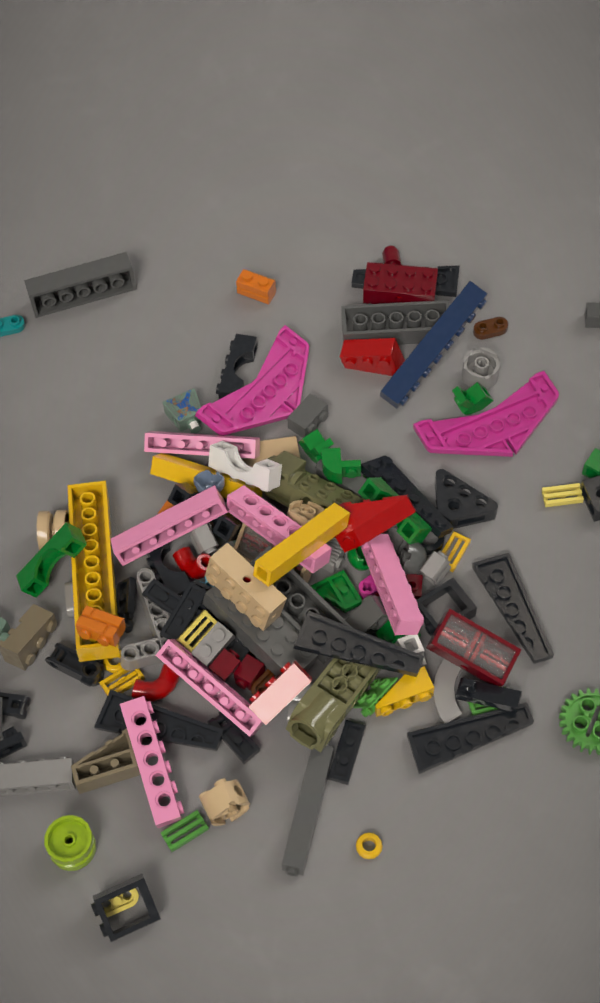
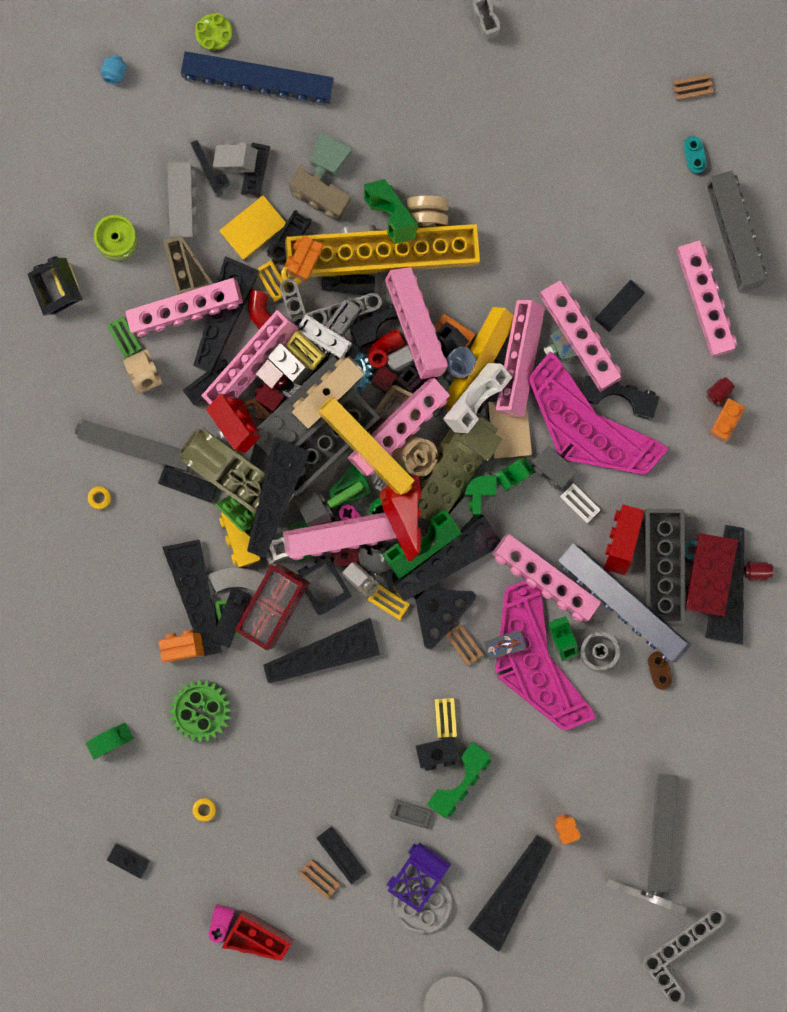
camera: 90 degrees right, 25 degrees up
(63, 703) = (253, 227): none -> yellow tile
(143, 308) = (715, 345): none -> bright pink brick
(149, 373) = (619, 305): none -> black beam
(179, 393) = (561, 291): none -> bright pink brick
(228, 294) = (720, 391): none -> dark red brick
(338, 393) = (584, 507): none -> white tile
(348, 587) = (345, 495): none -> bright green tile
(416, 413) = (587, 602): none -> bright pink brick
(485, 444) = (504, 645): none -> tile
(498, 474) = (454, 631): none -> medium nougat tile
(527, 741) = (181, 647): none -> orange brick

